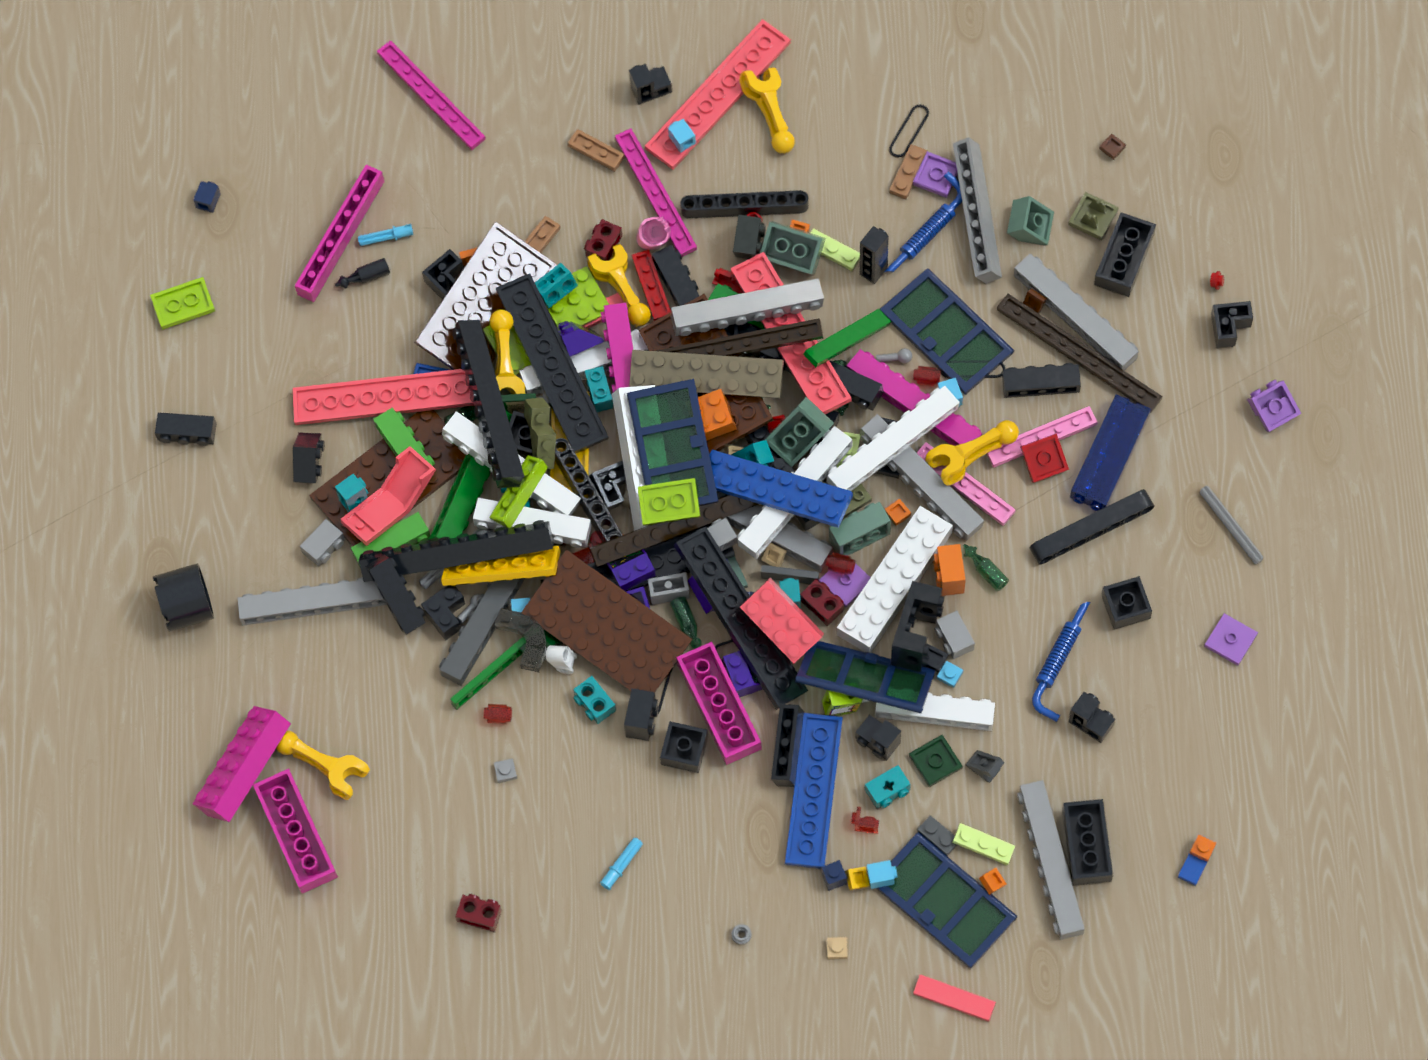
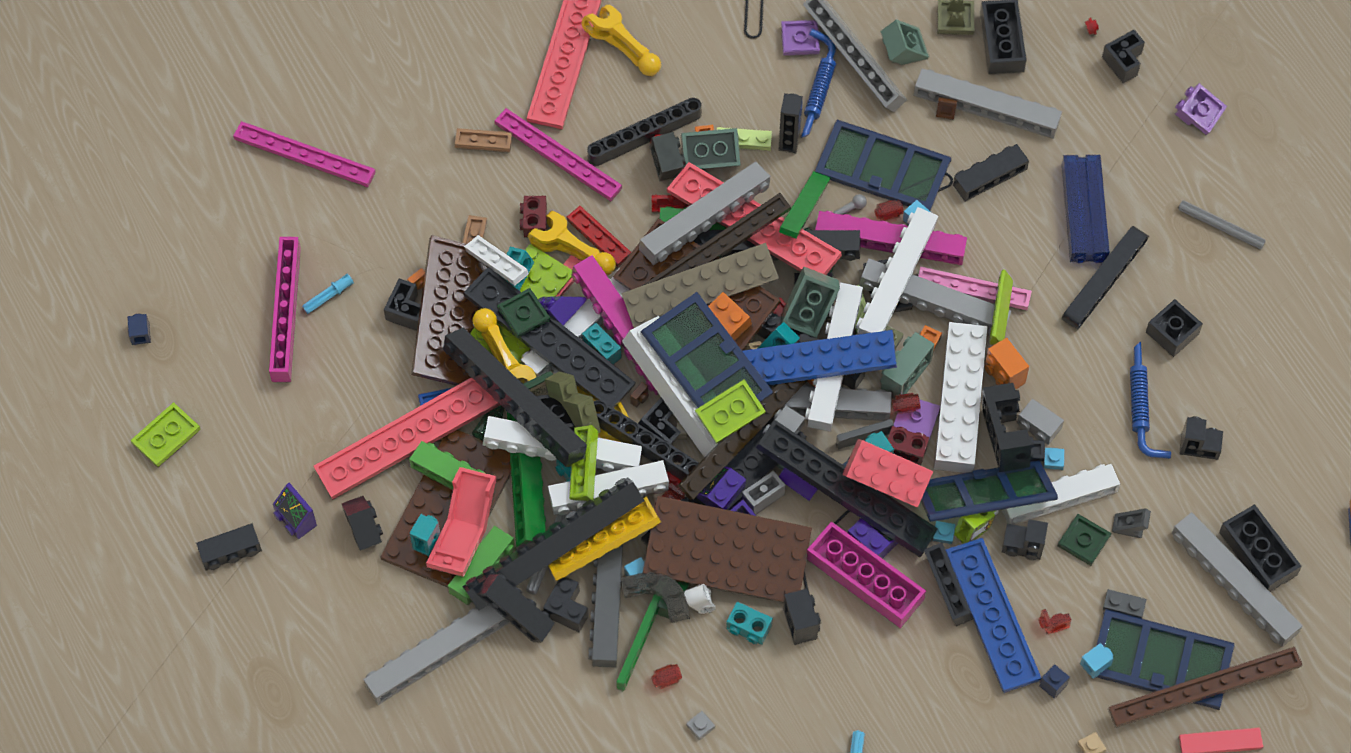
camera: 30 degrees left, 5 degrees down
(183, 597) = (313, 700): black brick -> none
(254, 422) = (294, 512): none -> slope
(322, 543) = (417, 594): light grey brick -> none
(365, 273) = (327, 335): black wheel -> none
(473, 605) = (589, 588): light grey bar -> none
(539, 329) = (523, 312): none -> dark green tile
(540, 270) = (496, 260): none -> white plate
(609, 449) = (639, 395): none -> reddish brown plate
(649, 84) = (501, 63): black brick -> none
(653, 233) = (577, 188): bright pink helmet -> none
(675, 275) = (618, 219): black brick -> none
(681, 135) = (557, 94): medium azure brick -> none
(684, 747) = (856, 628): black brick -> none
(686, 620) = (792, 514): clear green wheel -> none
(774, 555) = (841, 423): tan plate -> none
(813, 697) = (944, 532): none -> medium azure plate
(857, 878) = (1077, 674): yellow plate -> none
(893, 779) = (1059, 571): teal brick -> none
(904, 179) = (773, 45): medium nougat plate -> none
(959, 457) = (961, 263): yellow piece -> none
(965, 942) = (1205, 687): none -> reddish brown plate
(974, 514) = (1001, 308): none -> lime slope
(983, 844) = (1169, 593): yellowish green plate -> none
(987, 568) = (1037, 353): clear green wheel -> none
(992, 881) = (1196, 621): orange plate -> none
(1044, 458) = (1031, 235): red plate -> none
(1063, 427) = (1017, 220): bright pink plate -> none
(1078, 352) = (1007, 135): dark brown plate -> none
(1231, 639) = (1277, 321): medium lavender plate -> none

